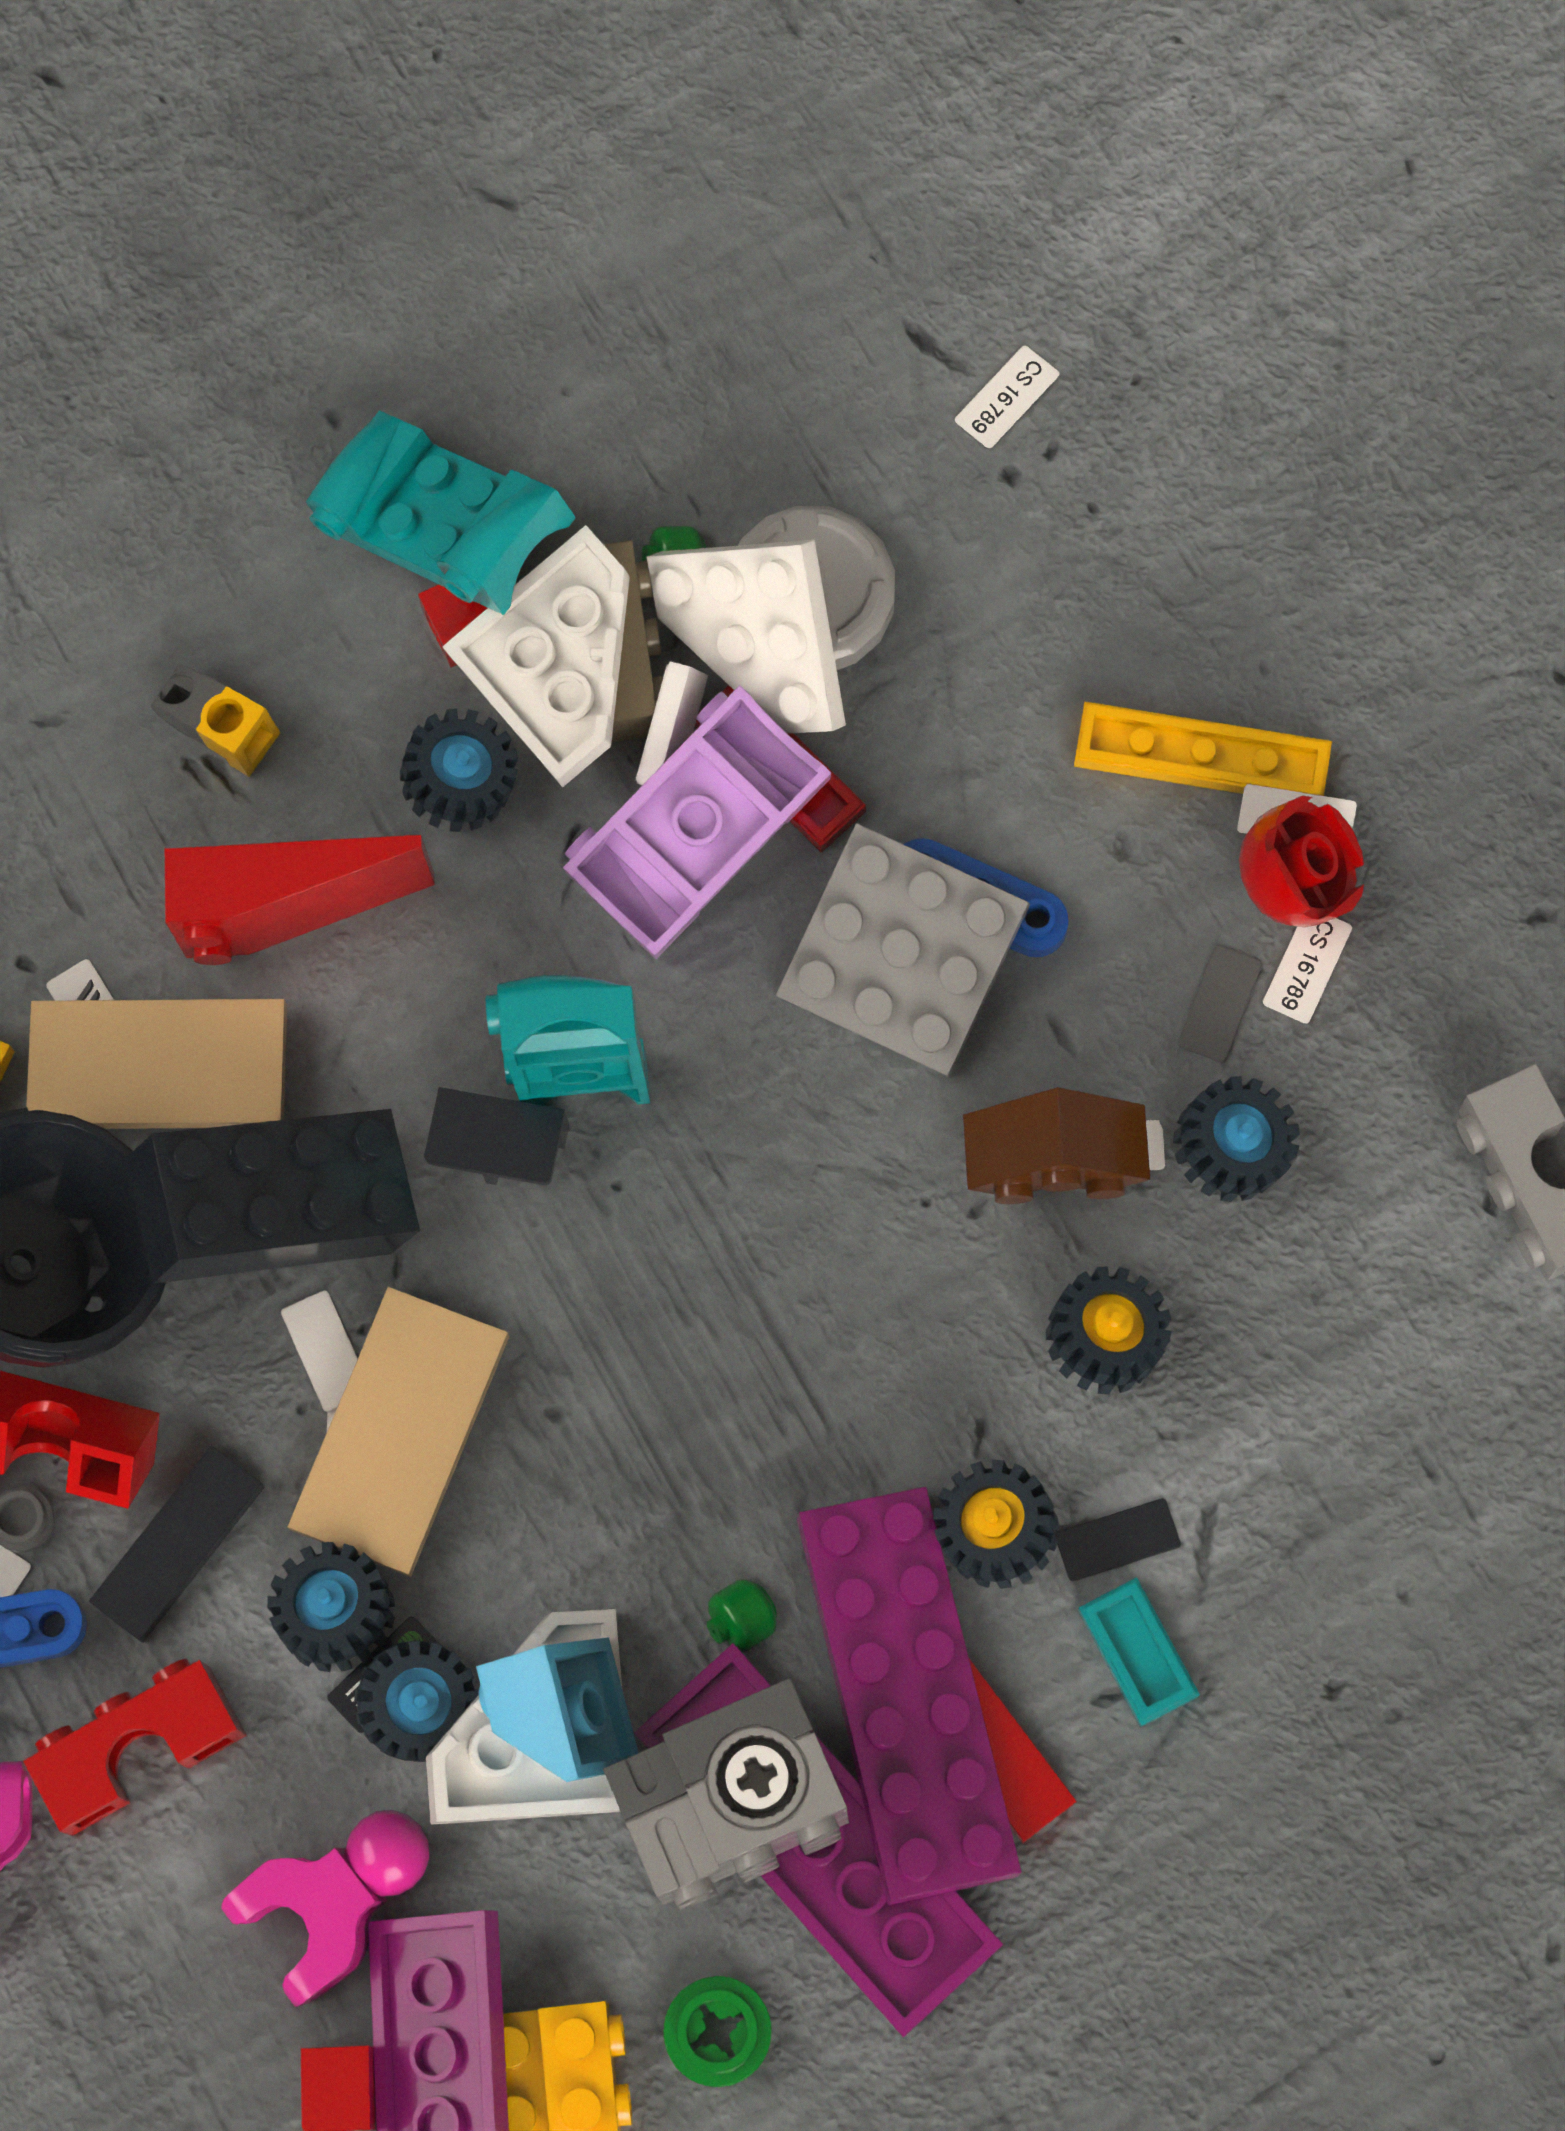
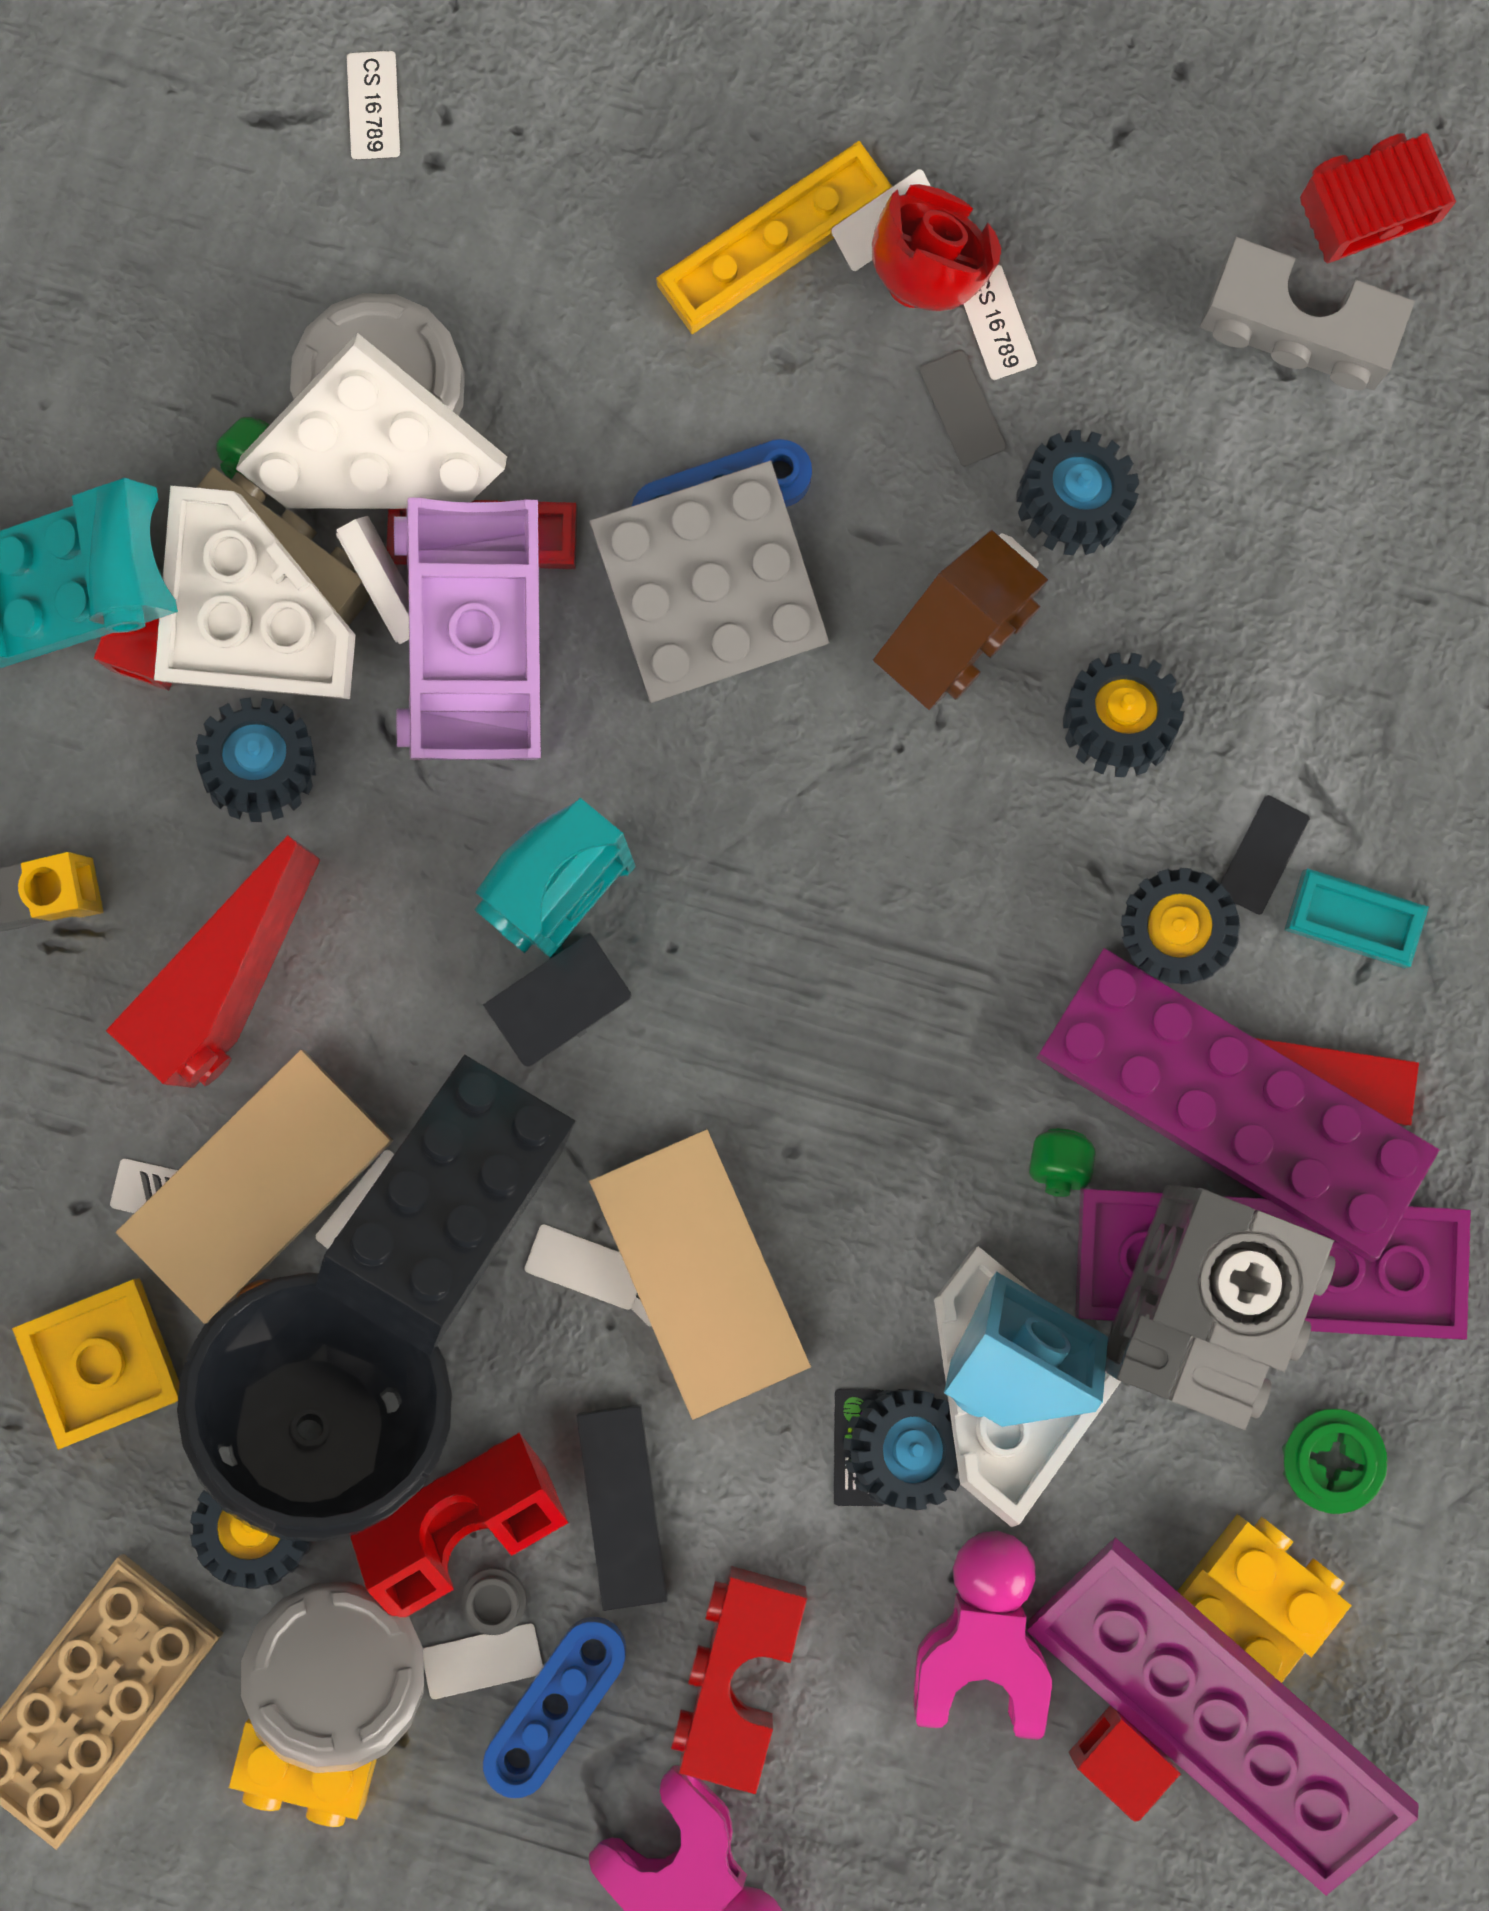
camera: 50 degrees left, 10 degrees up
(331, 1607) = (780, 1444): black wheel -> none

